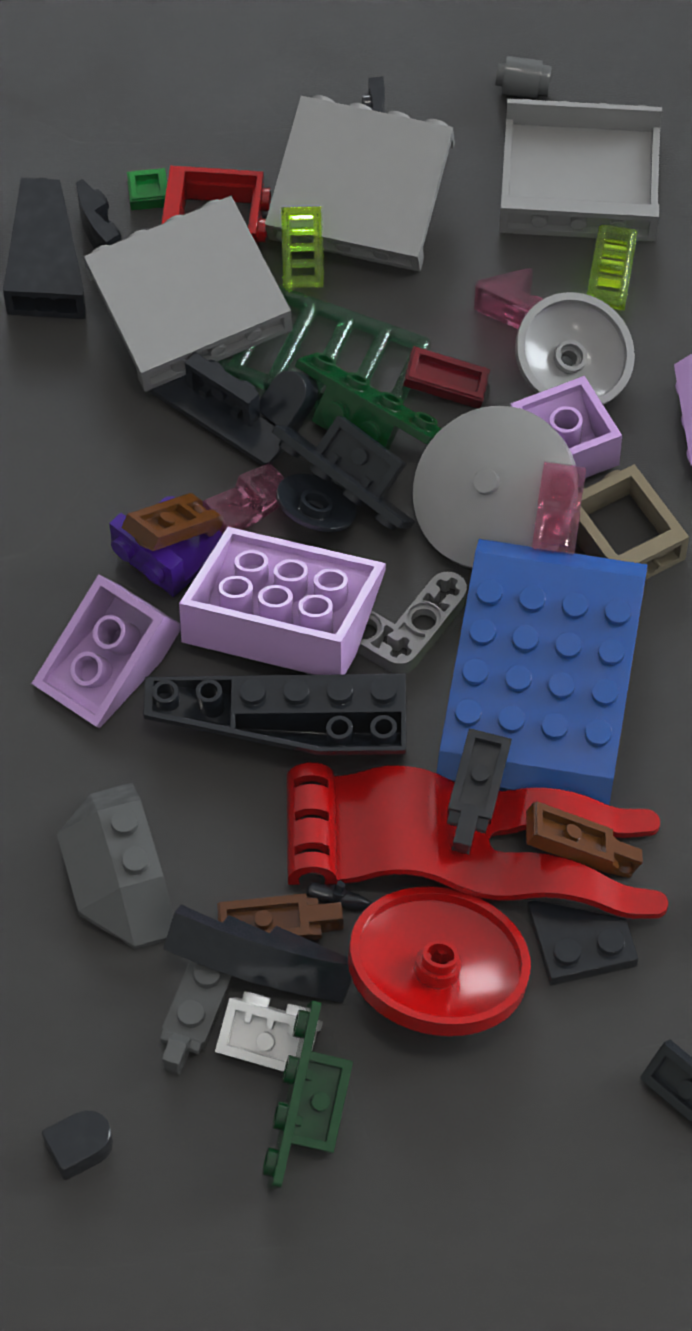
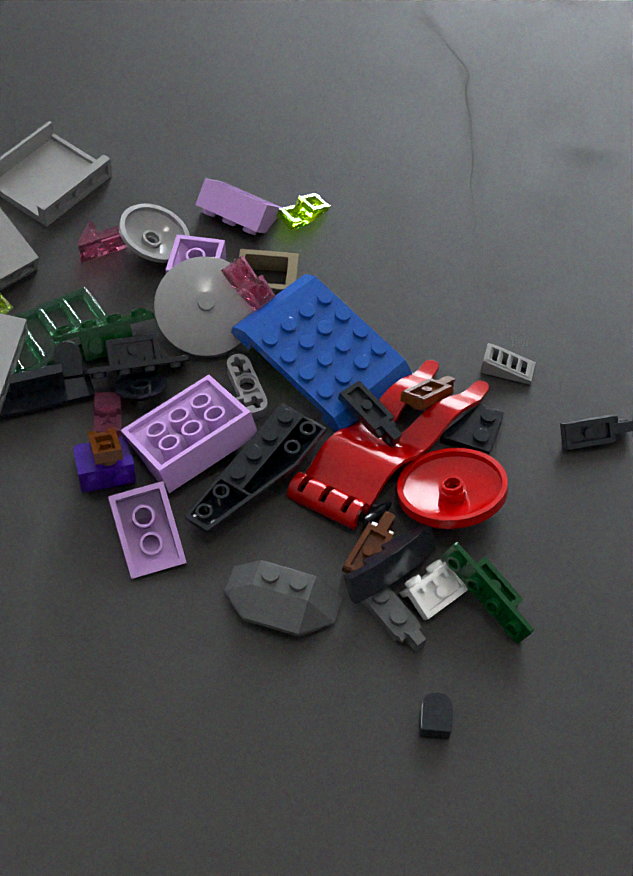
camera: 60 degrees left, 5 degrees down
(446, 377) = (114, 293): dark red tile -> none
(616, 244) = (106, 184): clear neon green slope -> none

